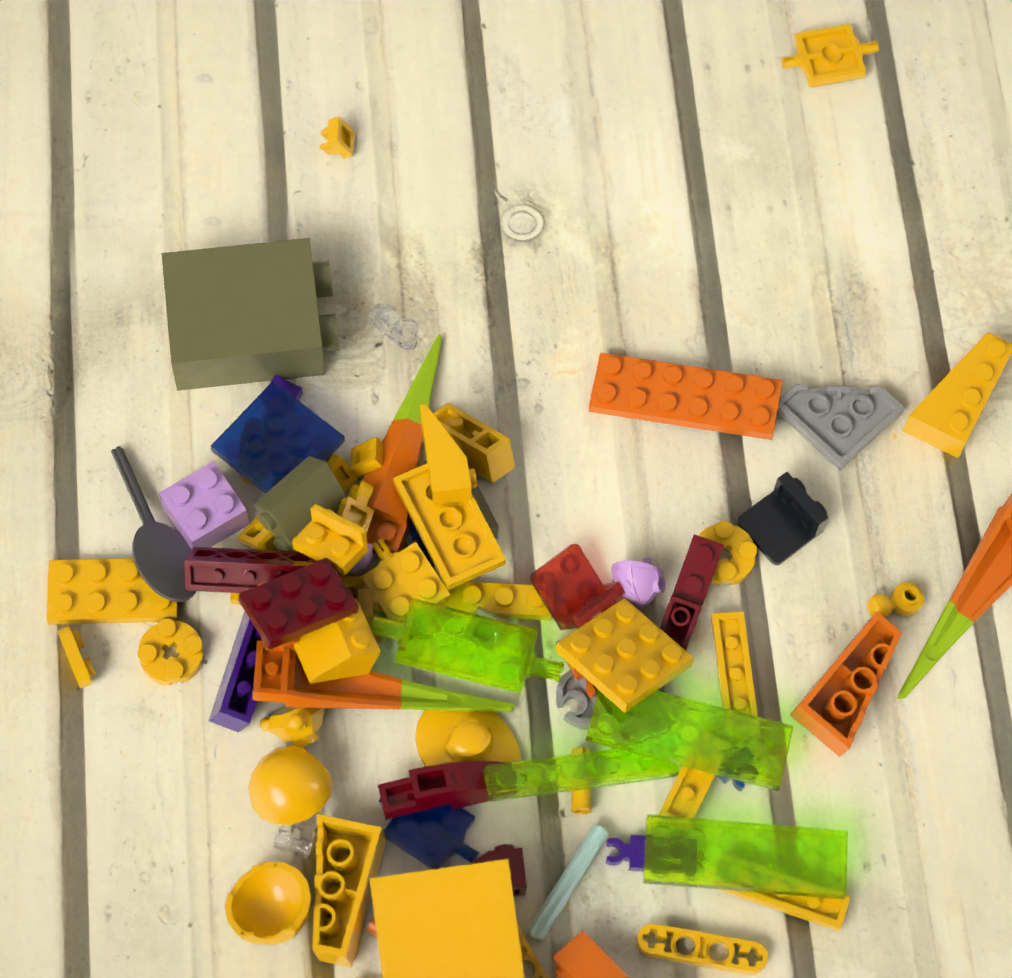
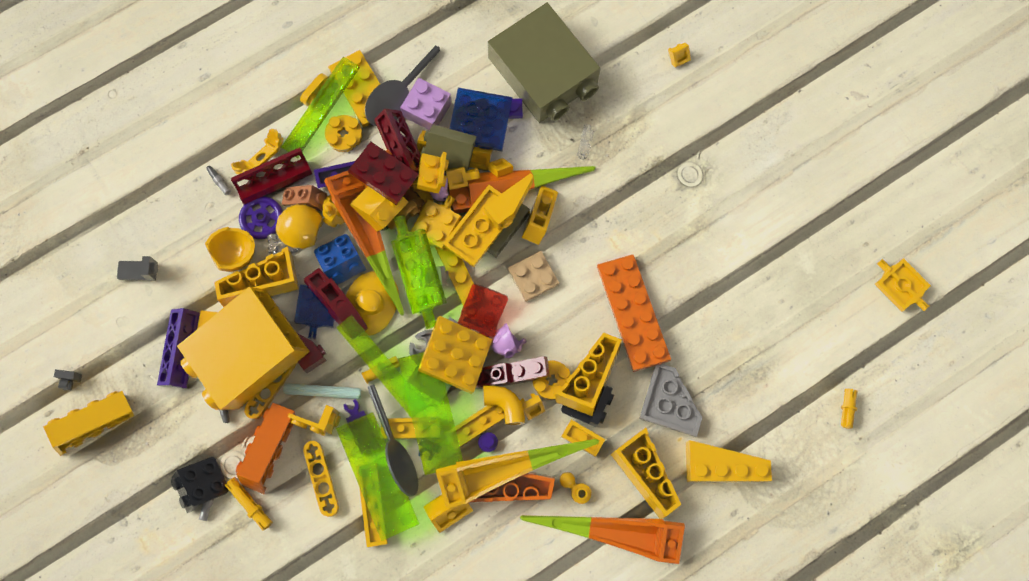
camera: 65 degrees right, 10 degrees up
(112, 661) = (321, 105): none -> clear neon green plate
(128, 765) = (273, 144): none -> yellow piece
(132, 878) = (218, 180): none -> light grey piece
(182, 789) = (273, 178): none -> dark red fence
(213, 825) = (247, 210): none -> dark purple plate
(241, 759) = (303, 195): none -> nougat bracket
(372, 753) = (339, 259): none -> blue bracket
(556, 500) = (533, 276): none -> tan plate
(624, 886) = (328, 420): none -> yellow bracket
(725, 814) = (397, 457): none -> dark grey piece
(729, 621) = (507, 401): none -> yellow cylinder
(752, 597) = (533, 406): none -> yellow tile
(757, 496) = (589, 379): none -> yellow wedge
(769, 684) = (488, 442): none -> dark purple plate
(824, 706) = (478, 476): none -> yellow plate
(830, 555) = (575, 433): none -> yellow plate
(838, 788) = (445, 517): none -> yellow panel
(925, 495) = (647, 473): none -> yellow wedge
(961, 207) = (849, 408): none -> yellow axle

